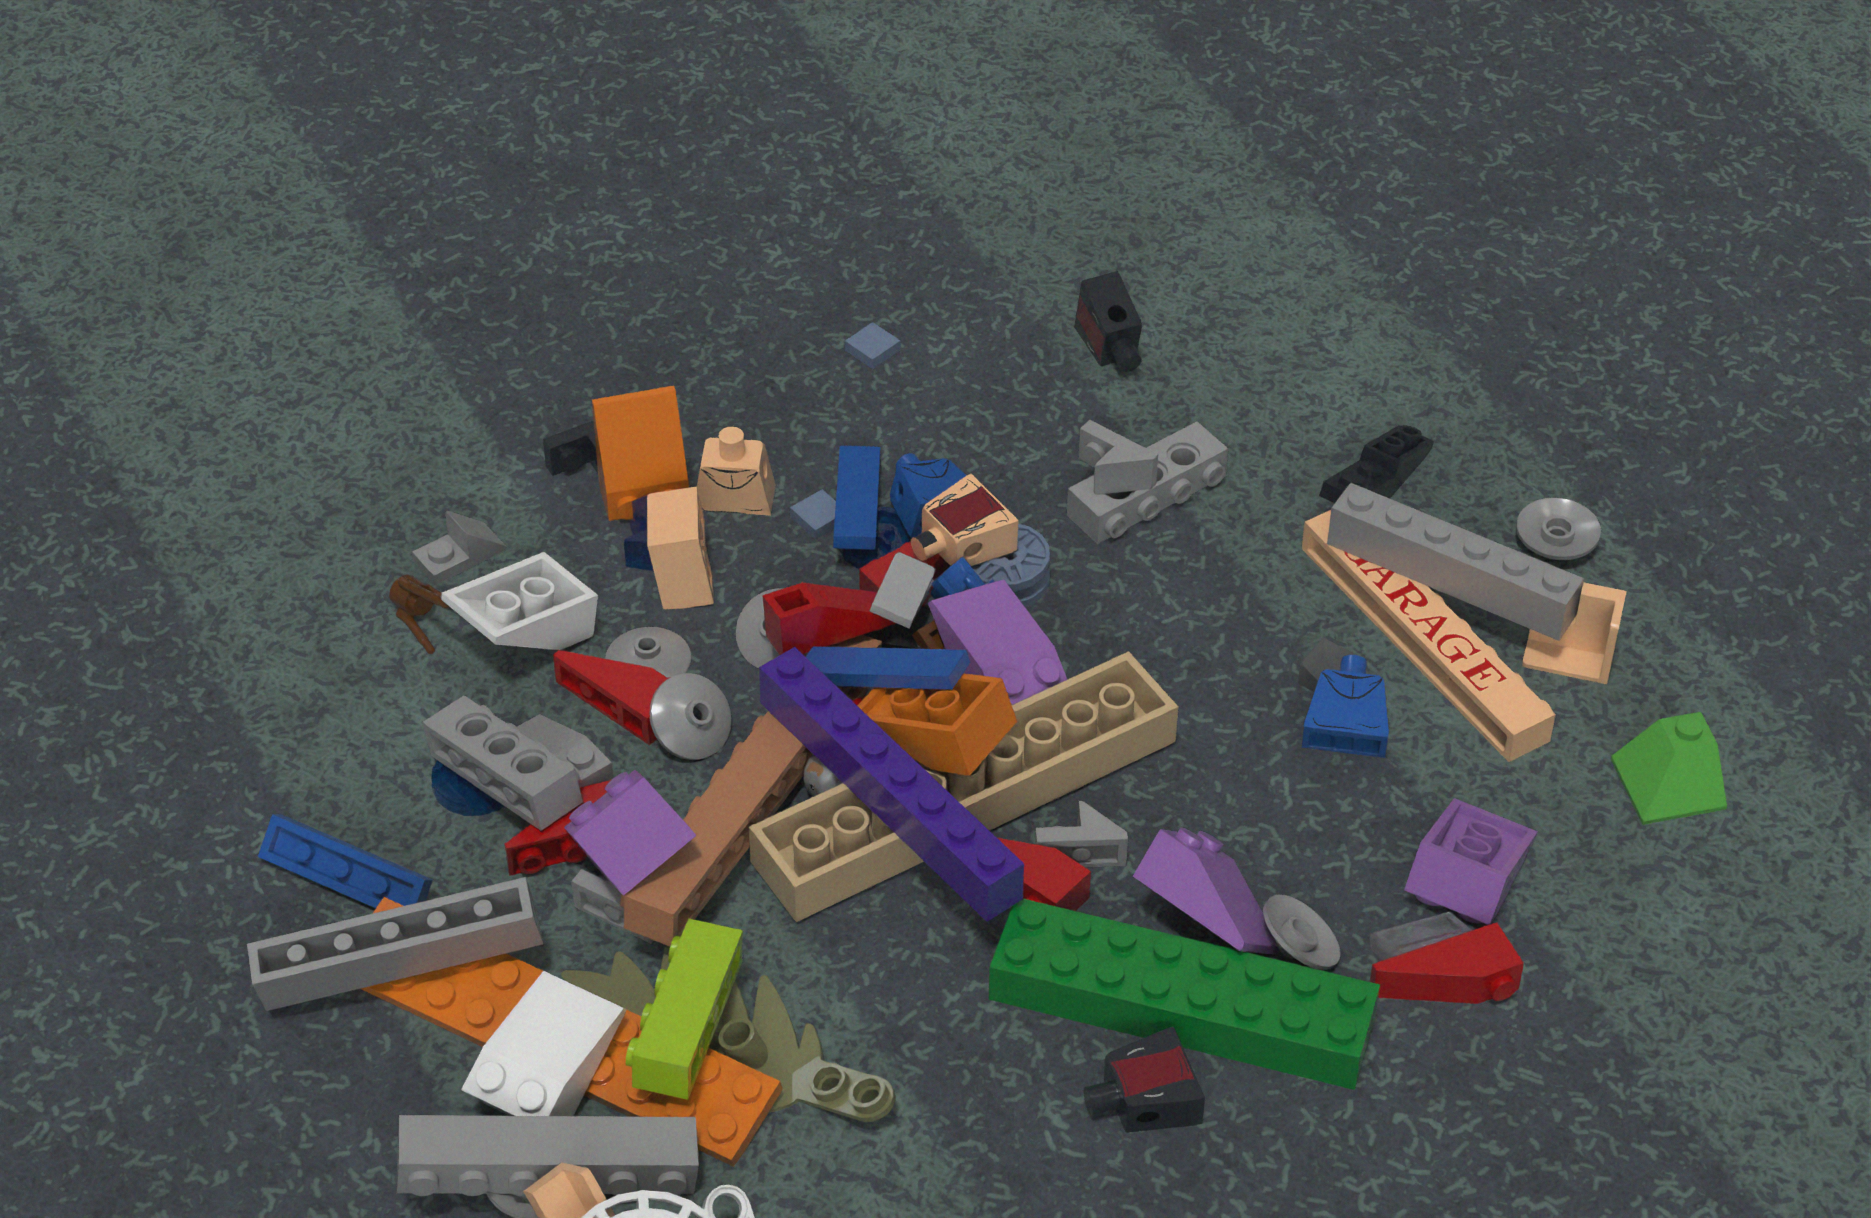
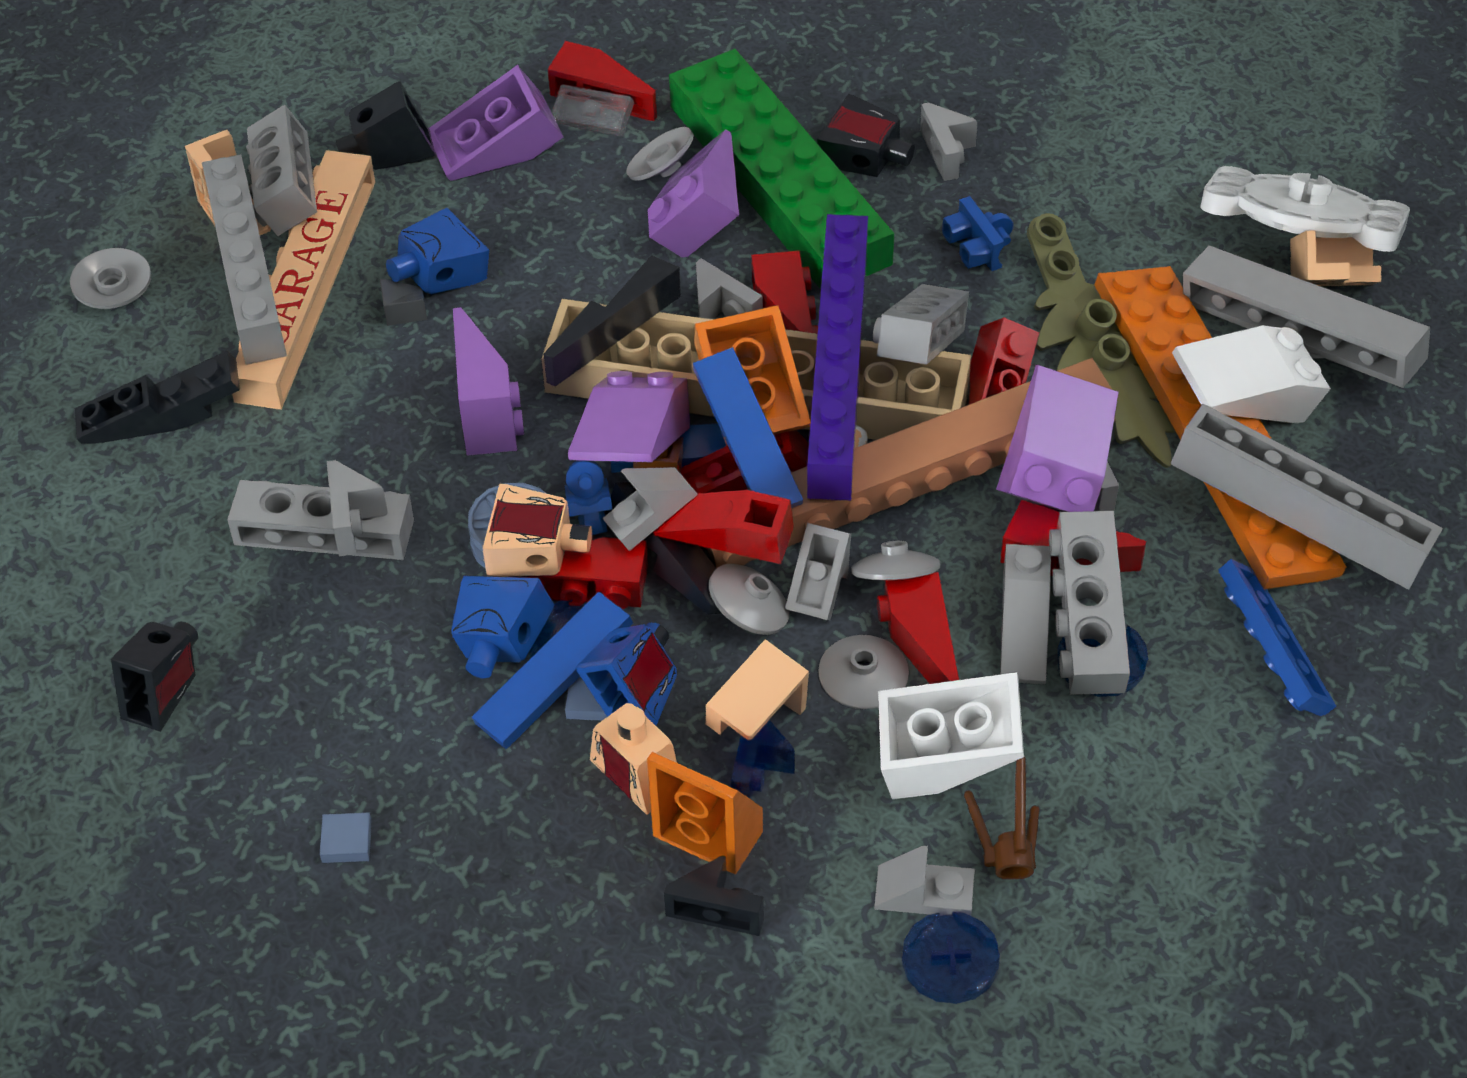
camera: 135 degrees left, 5 degrees up
(402, 525) = (951, 957): none -> clear blue tile
(685, 1009) = (1132, 321): lime brick -> none
(740, 678) = (819, 571): none -> light grey slope
(769, 923) = (1001, 358): none -> red slope
(793, 511) = (630, 669): none -> blue torso
(853, 903) = (921, 324): none -> light grey brick
(933, 1063) = (984, 232): none -> blue hips
(1082, 1143) = (946, 137): none -> light grey slope
(1105, 677) = (601, 327): none -> black slope
(1157, 618) = (484, 392): none -> medium lavender slope
(1540, 760) = (388, 130): none -> black torso
(1558, 669) = (280, 171): none -> light grey brick
(1672, 770) = (308, 98): bright green slope -> none

